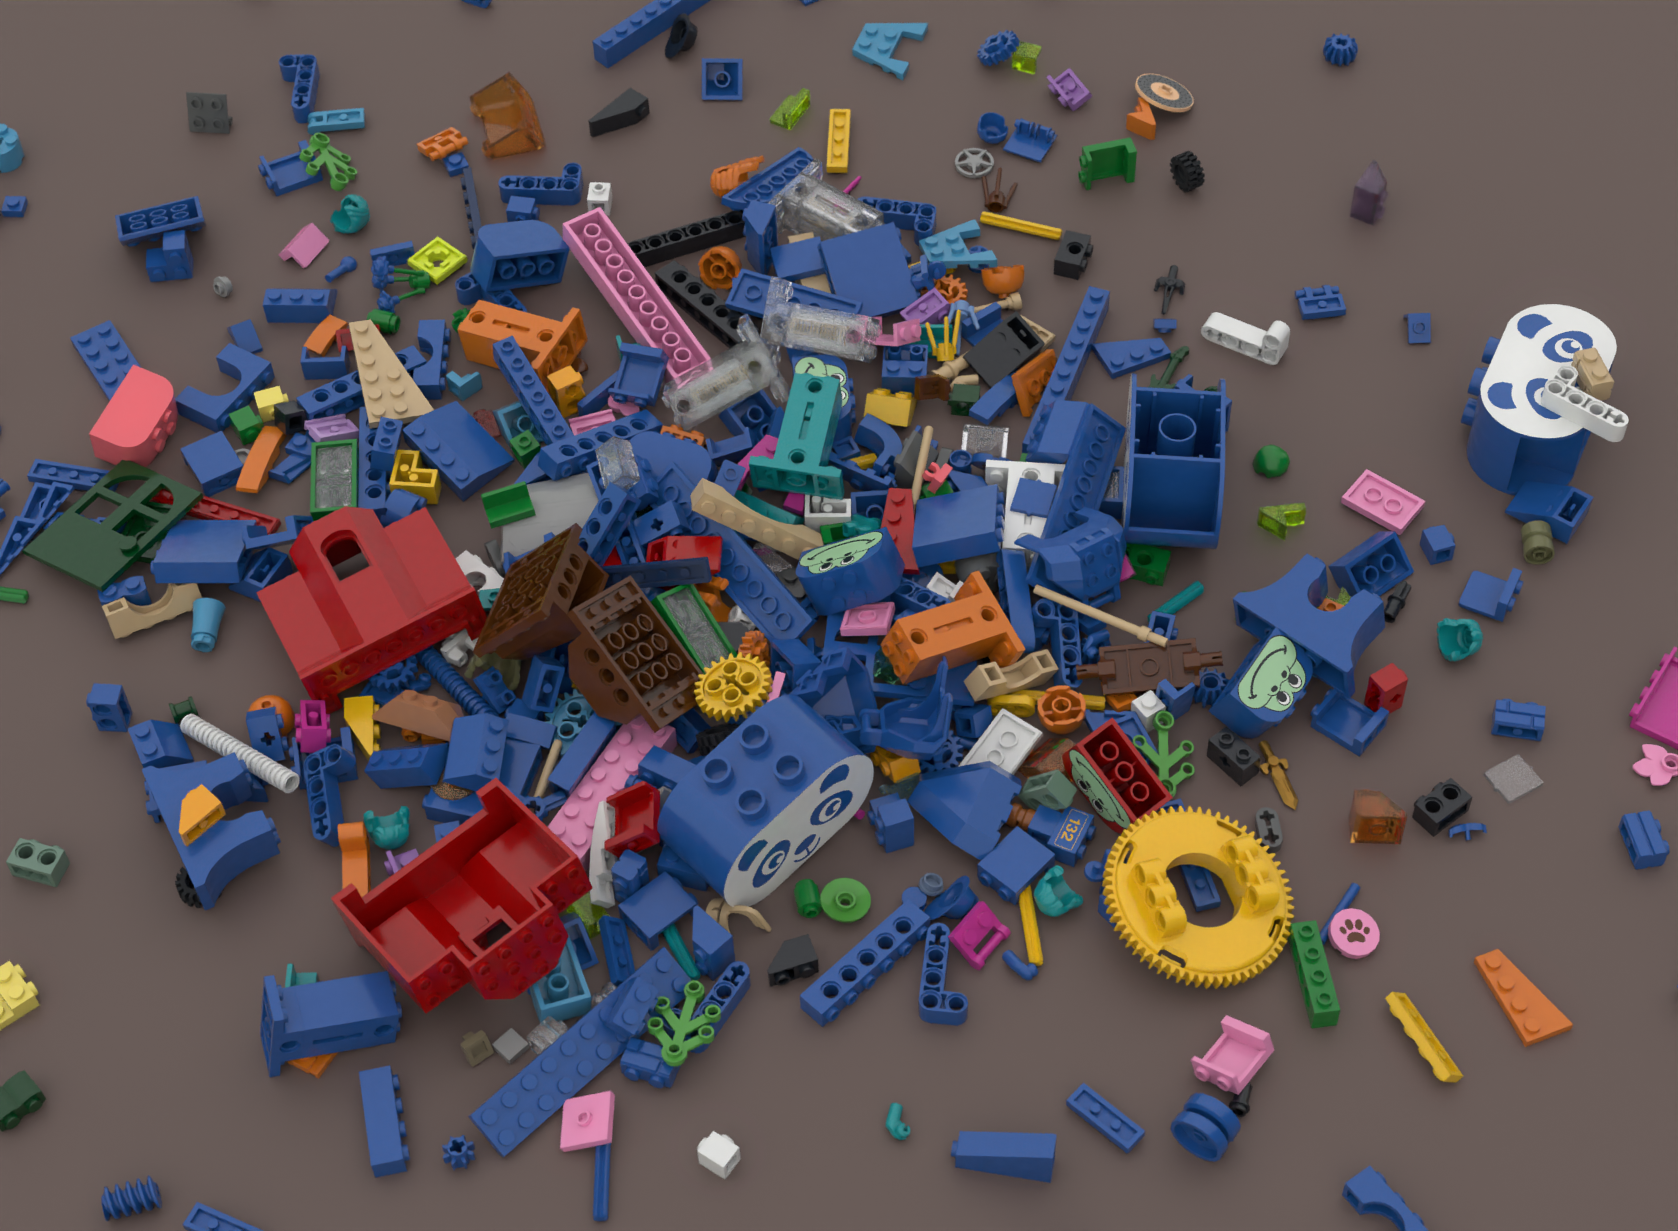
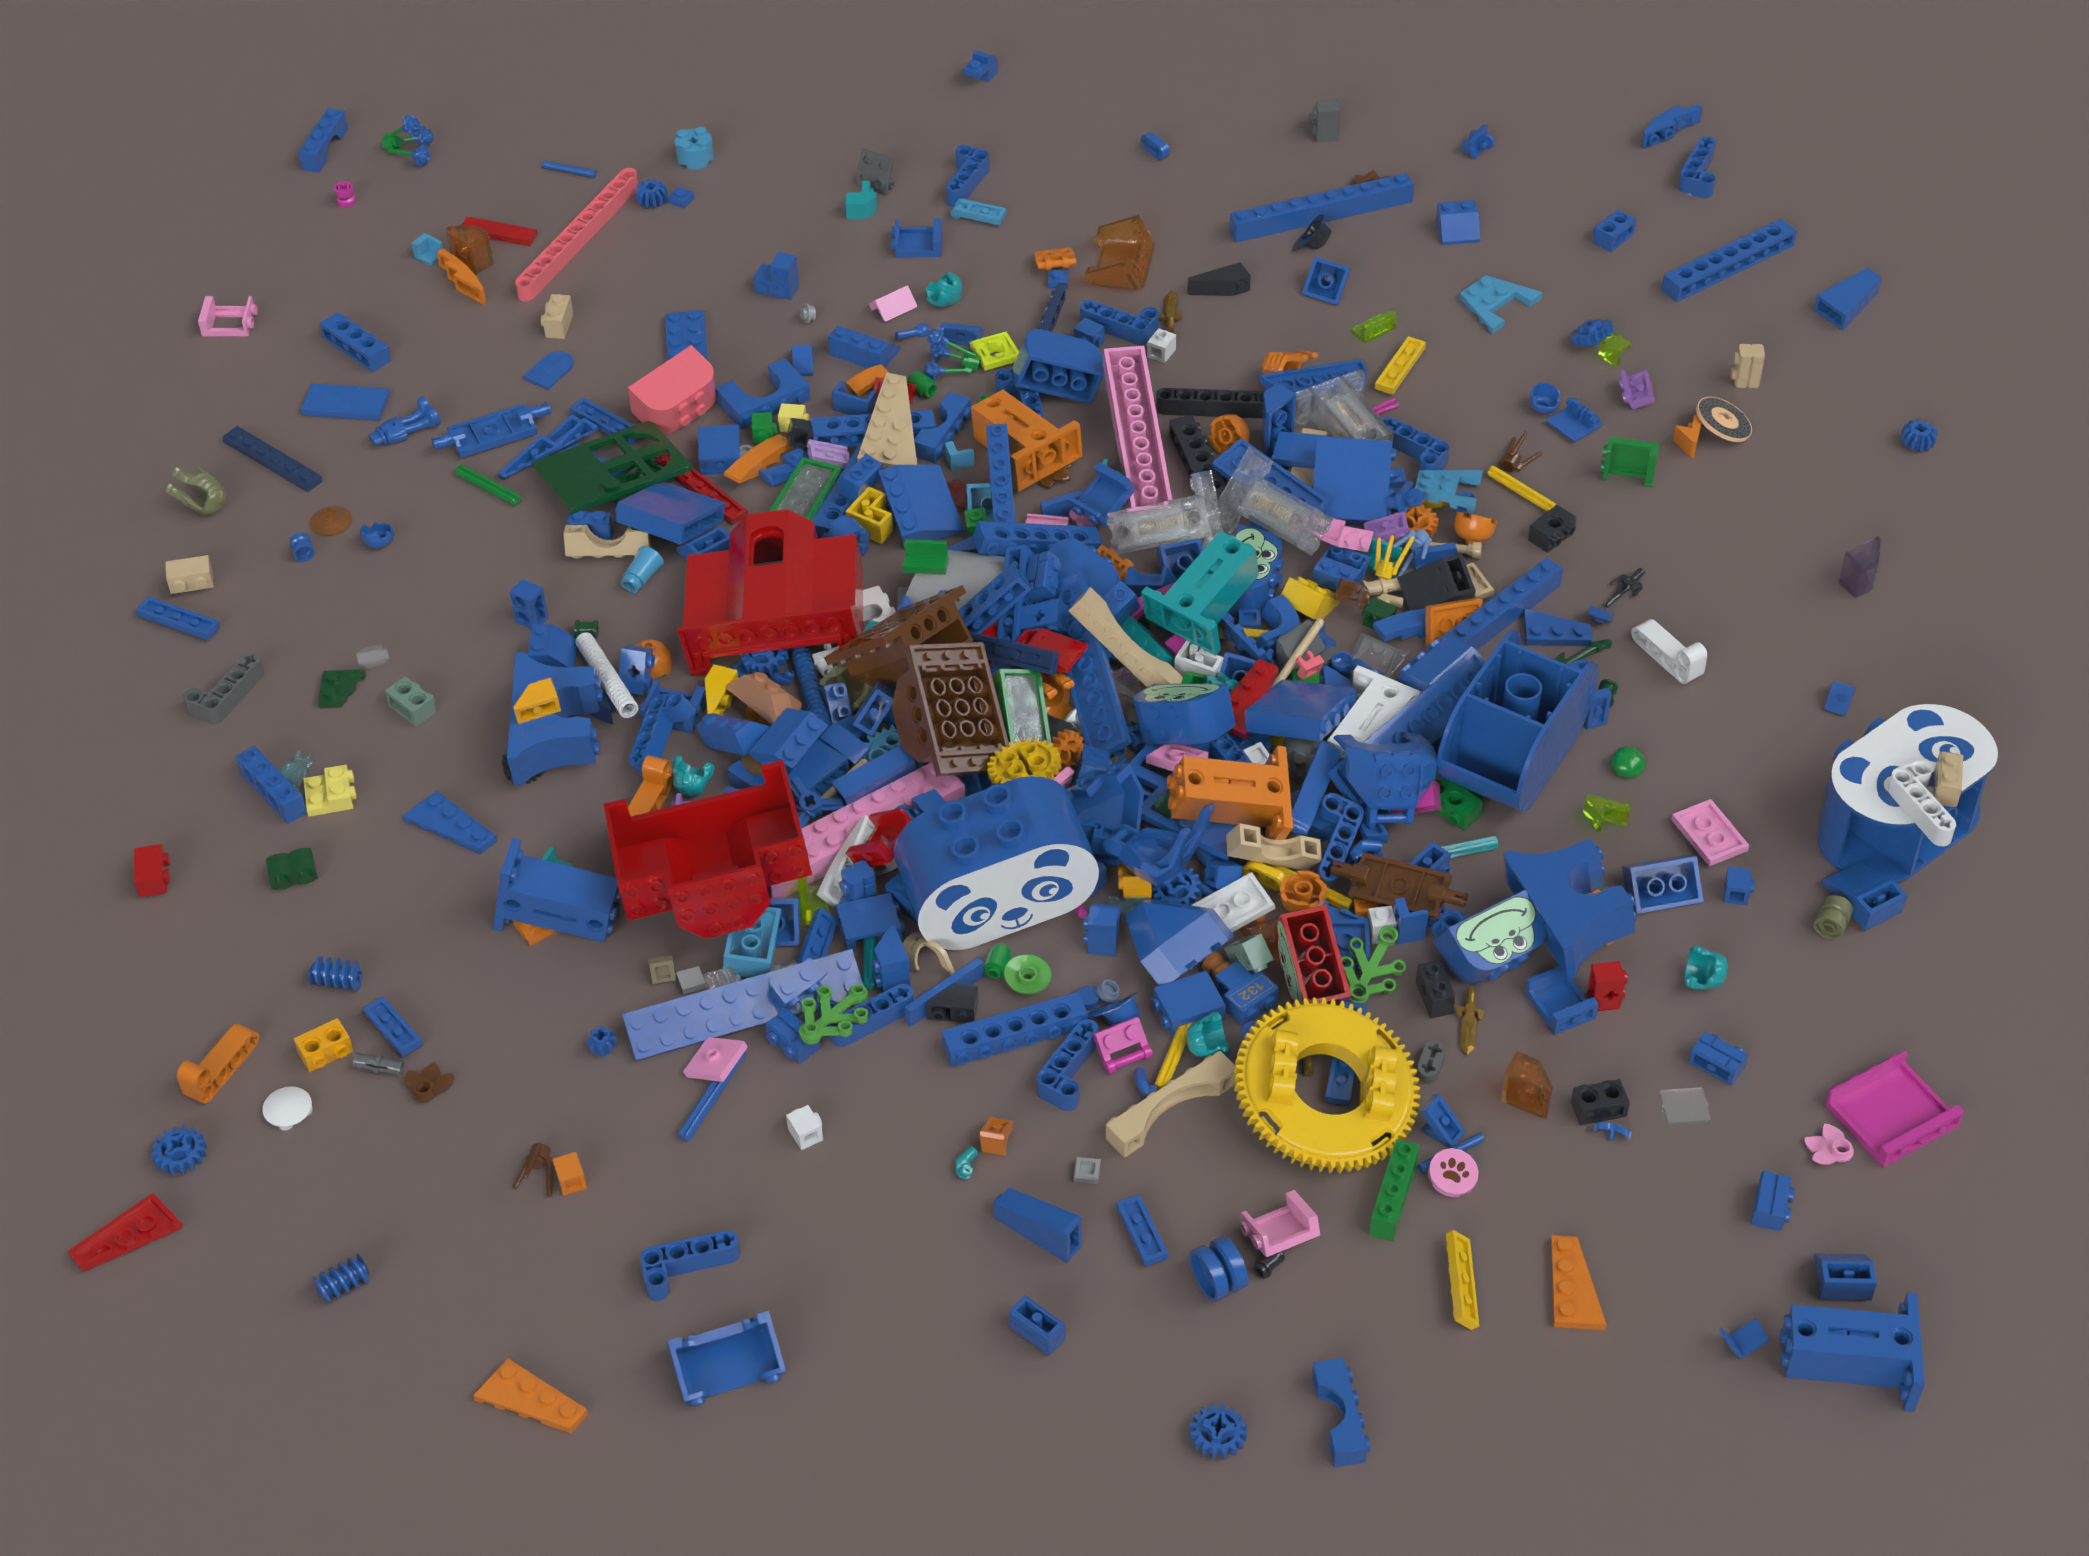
camera: 25 degrees right, 5 degrees down
(153, 221) = (768, 243): blue slope -> none
(153, 977) = (450, 822): none -> blue wing
(212, 151) = (861, 204): none -> teal brick
(257, 538) = (720, 516): blue panel -> none
(312, 726) = (675, 674): dark pink brick -> none
(320, 143) = (952, 225): bright green plant -> none
(383, 1121) = (557, 995): blue brick -> none
(566, 390) = (1036, 488): light orange brick -> none
(586, 159) = (1170, 311): none -> pearl gold sword
(617, 463) = (1029, 552): clear brick -> none
(783, 933) = (966, 975): none -> blue tile
(912, 1080) = (995, 1136): none -> orange slope
(974, 162) = (1512, 423): light grey wheel -> none
(1016, 1078) = (1087, 1170): none -> light grey tile
(1033, 497) = (1378, 709): blue piece -> none
(1079, 934) = (1208, 1078): none -> tan arch
(1143, 633) = (1405, 852): tan bar -> none
(1158, 33) = (1748, 365): none -> tan brick
(1187, 171) = (1701, 492): black tyre -> none
(1315, 888) = (1441, 1122): none -> blue slope
(1320, 302) = (1759, 645): blue plate -> none
(1396, 601) = (1668, 920): black axle -> none
(1490, 594) = (1761, 945): blue bracket -> none

